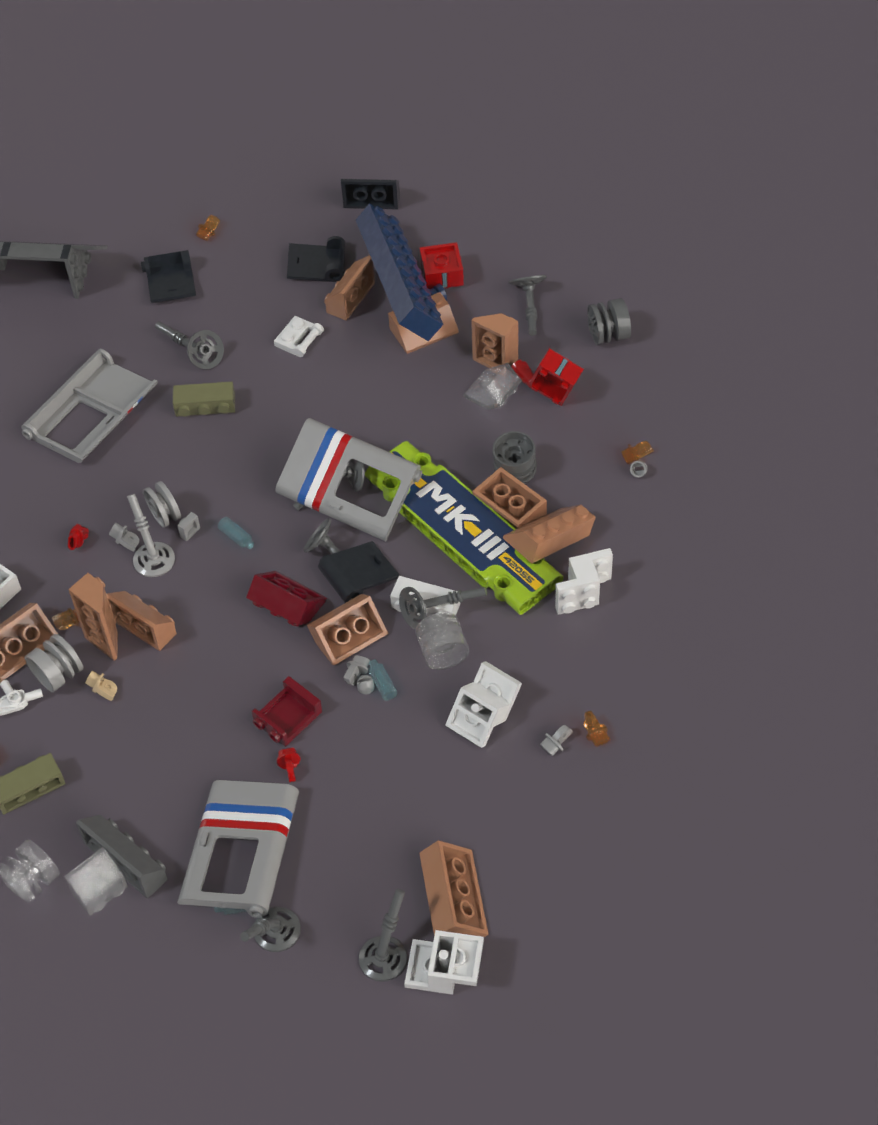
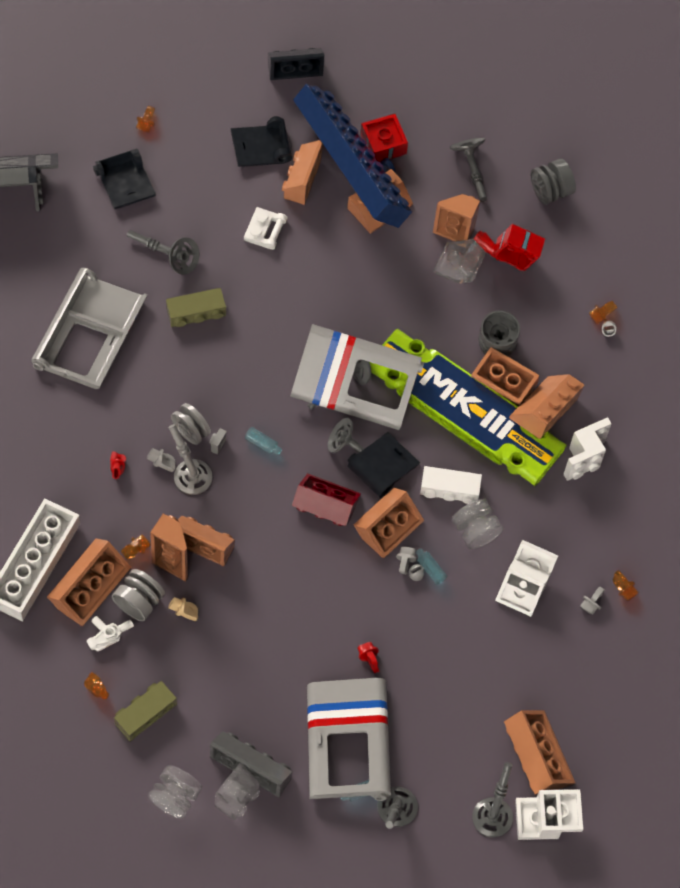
camera: 20 degrees left, 10 degrees up
(288, 712) = (356, 609): dark red panel -> none
(420, 605) = (452, 492): dark grey dish -> none

